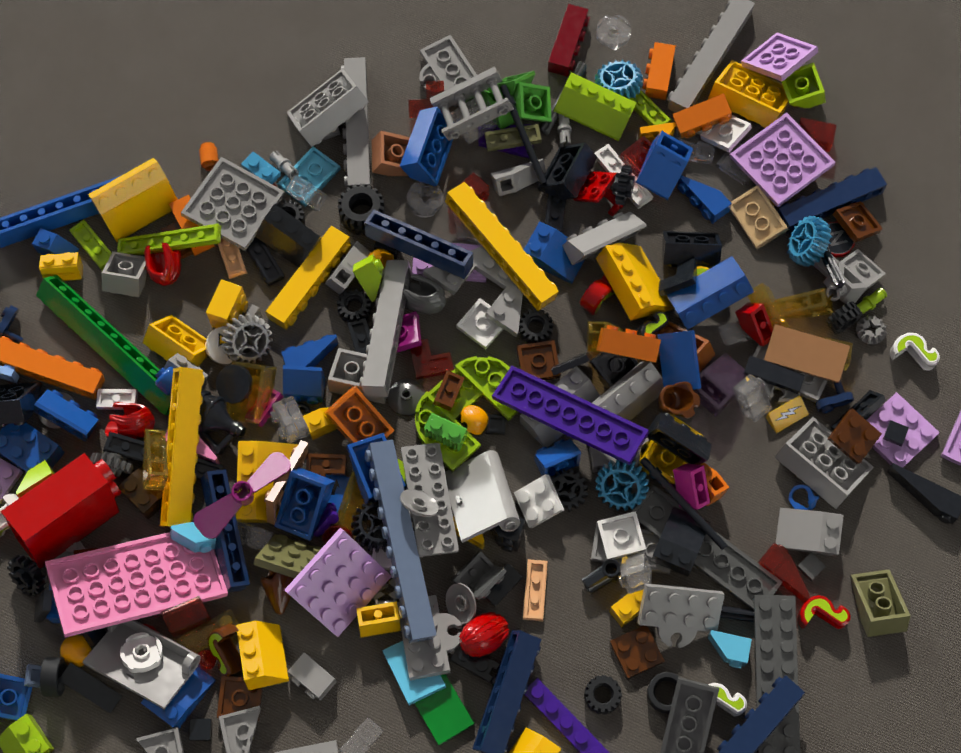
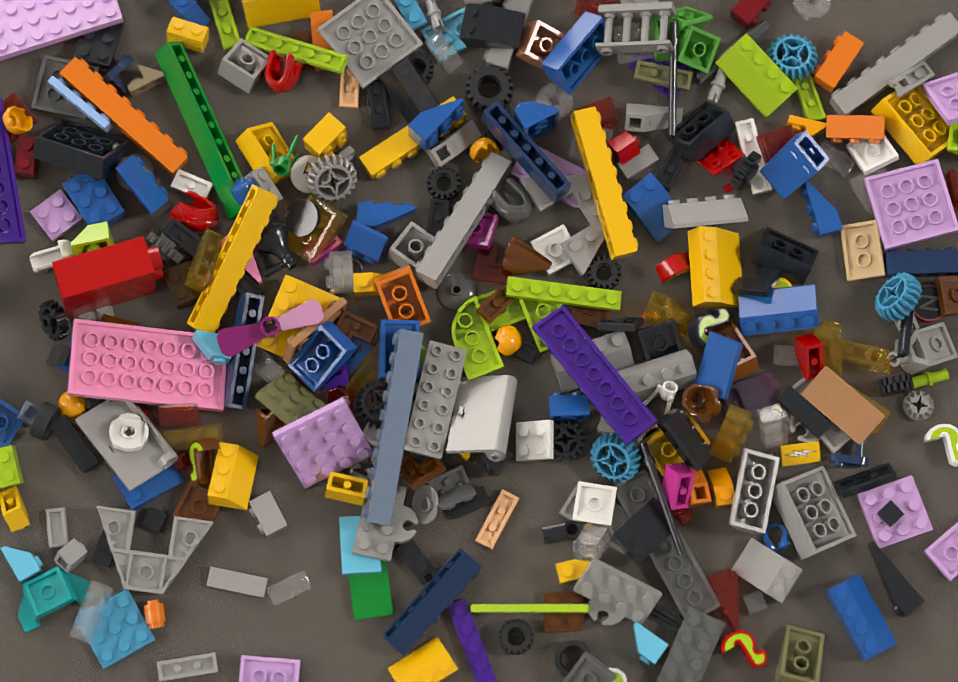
camera: 20 degrees right, 10 degrees up
(40, 319) = (150, 79): none -> dark tan slope
(195, 343) = (282, 164): none -> green plant
(323, 251) = (434, 122): none -> blue slope
(341, 153) = (491, 27): none -> black slope
(369, 275) = (468, 161): lime slope -> none
(416, 210) = (536, 118): none -> blue slope
(419, 503) = (422, 402): light grey dish -> none
(443, 577) = (418, 475): none -> reddish brown plate
(445, 432) = (475, 343): bright green brick -> none
(457, 341) = (524, 259): none -> reddish brown hat
(483, 634) = (433, 541): red hair -> none
(506, 210) = (624, 147): none -> red brick
(507, 357) = (563, 293): none -> lime plate
(523, 220) = (639, 163): none -> light grey tile
(605, 660) = (530, 608): none -> lime tile
(628, 343) = (678, 330): orange brick -> none
(644, 405) = (667, 393): none -> white plant
(708, 513) = (683, 516): none -> clear red plate
(719, 417) = (732, 434): none -> clear yellow brick
(730, 59) = (911, 78): none -> light grey plate
(732, 473) = (721, 487): none -> light orange slope
(765, 463) = (754, 492): none -> light grey slope
(854, 436) = (849, 501): reddish brown plate -> none
(914, 540) = (860, 617): none -> blue slope

